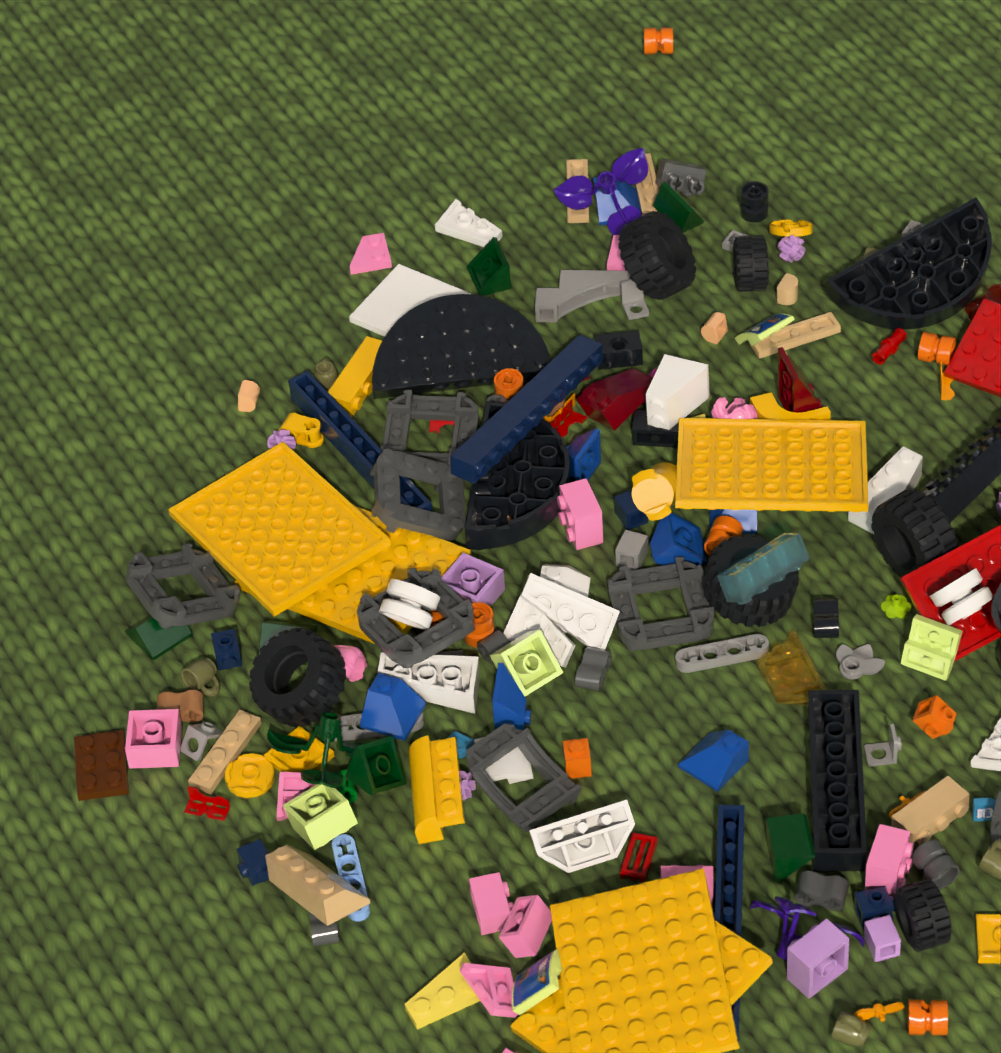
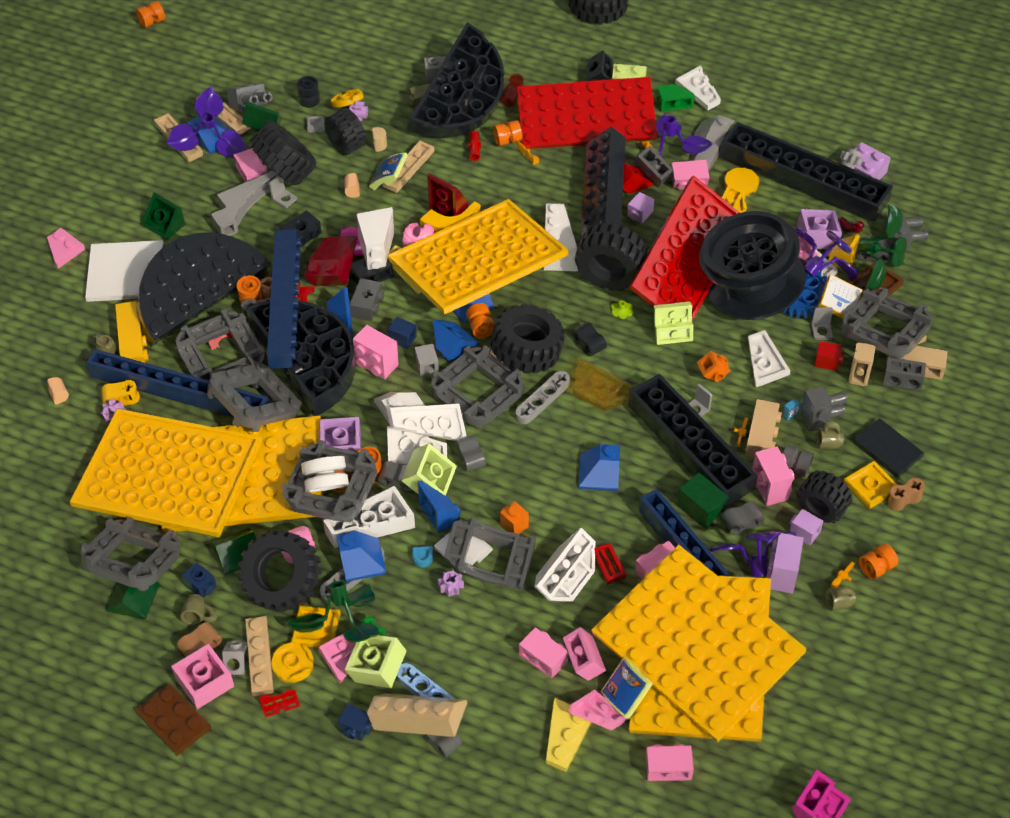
camera: 40 degrees left, 5 degrees up
(376, 766) = (387, 604): dark green slope -> none
(435, 787) = (439, 594): yellow brick -> none
(465, 225) = (116, 196): white wing -> none
(623, 456) = (366, 299): none -> dark grey brick
(655, 490) = (419, 308): yellow piece -> none
(763, 568) = (543, 323): clear light blue brick -> none
(858, 661) = (631, 357): light grey plate -> none
(873, 904) = (783, 509): dark blue brick -> none
(962, 597) = (680, 278): white wheel -> none

